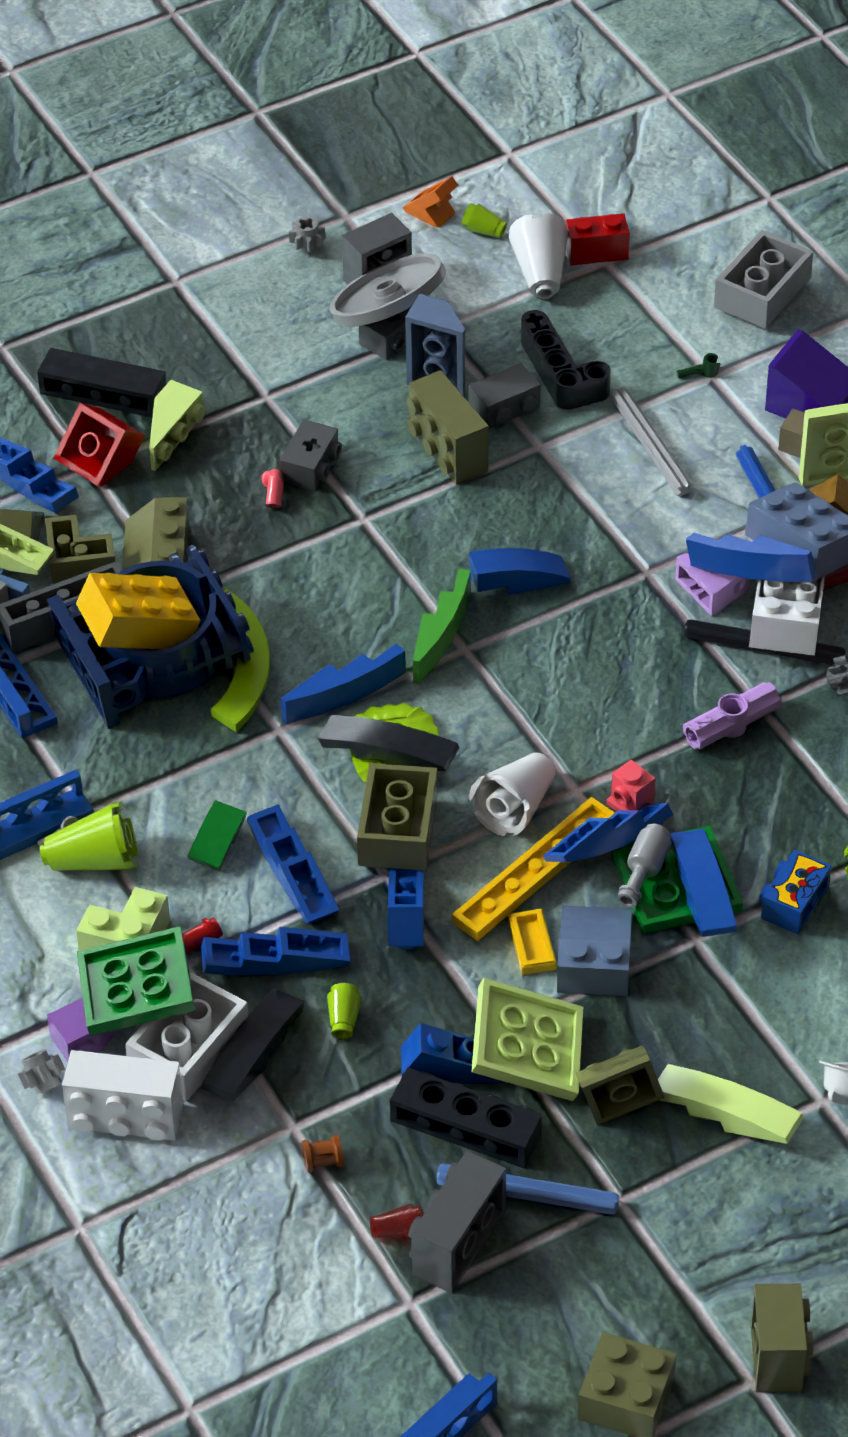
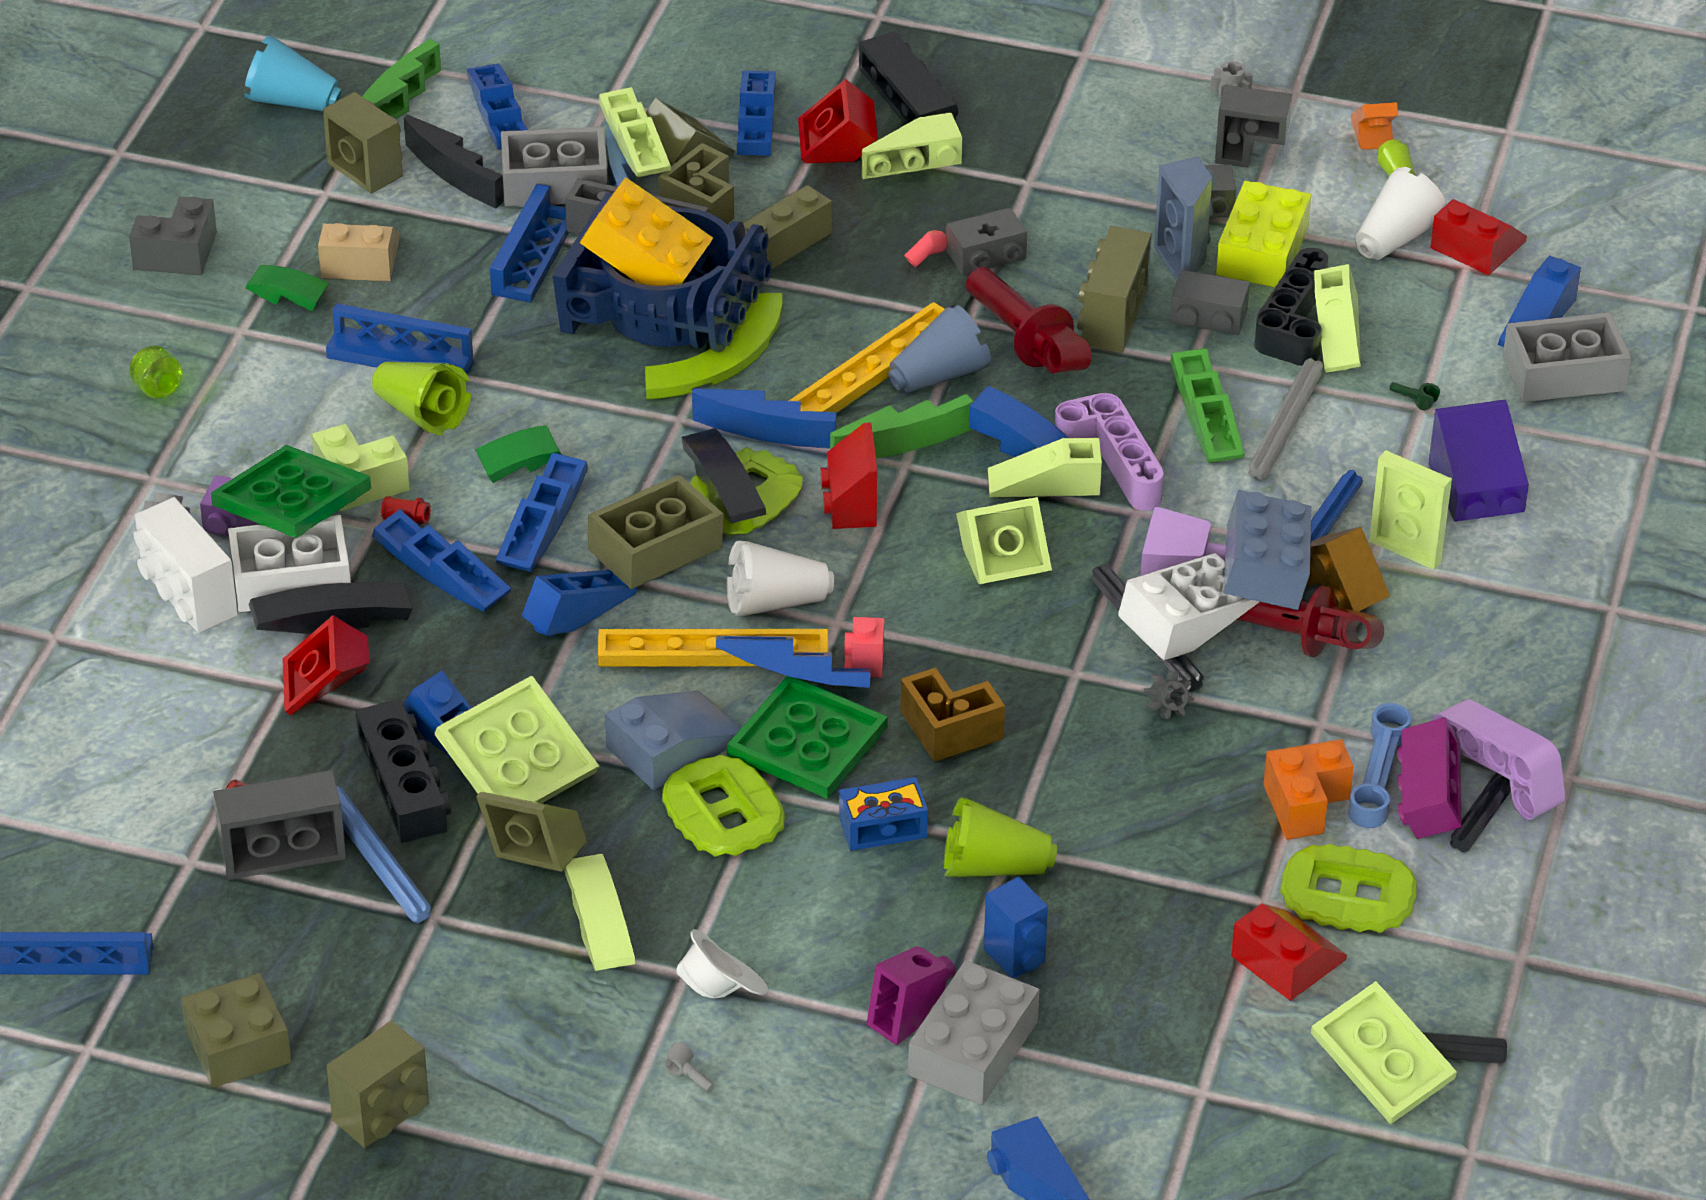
camera: 45 degrees right, 5 degrees down
(310, 1091) = (323, 663): none -> red slope
(322, 1153) = (270, 714): dark orange bush -> none
(343, 1008) = (429, 634): lime cone -> none
(357, 590) = (866, 368): none -> yellow plate
(387, 290) = (1215, 151): light grey dish -> none
(397, 550) = (940, 352): none -> sand blue cone
(448, 492) = (1041, 334): none -> dark red piece
(469, 680) = (851, 481): none -> red slope
(490, 329) = (1263, 233): none -> neon yellow brick
(532, 942) = (644, 682): yellow tile -> none
(574, 582) = (1055, 469): none -> yellowish green slope
(589, 534) = (1120, 445): none -> lavender beam
(592, 342) = (1338, 317): none -> yellowish green slope
(601, 471) = (1207, 405): none -> bright green slope
(608, 650) = (1004, 540): none -> yellowish green slope
(644, 861) = (788, 695): light grey piece -> none
(692, 951) = (746, 794): none -> lime piece
(695, 254) = (1548, 293): none -> blue slope
(703, 883) = (801, 744): blue slope -> none
(732, 715) = (1030, 655): lavender piece -> none
(747, 798) = (950, 720): none -> pearl gold brick
(752, 560) = (1188, 538): blue slope -> none

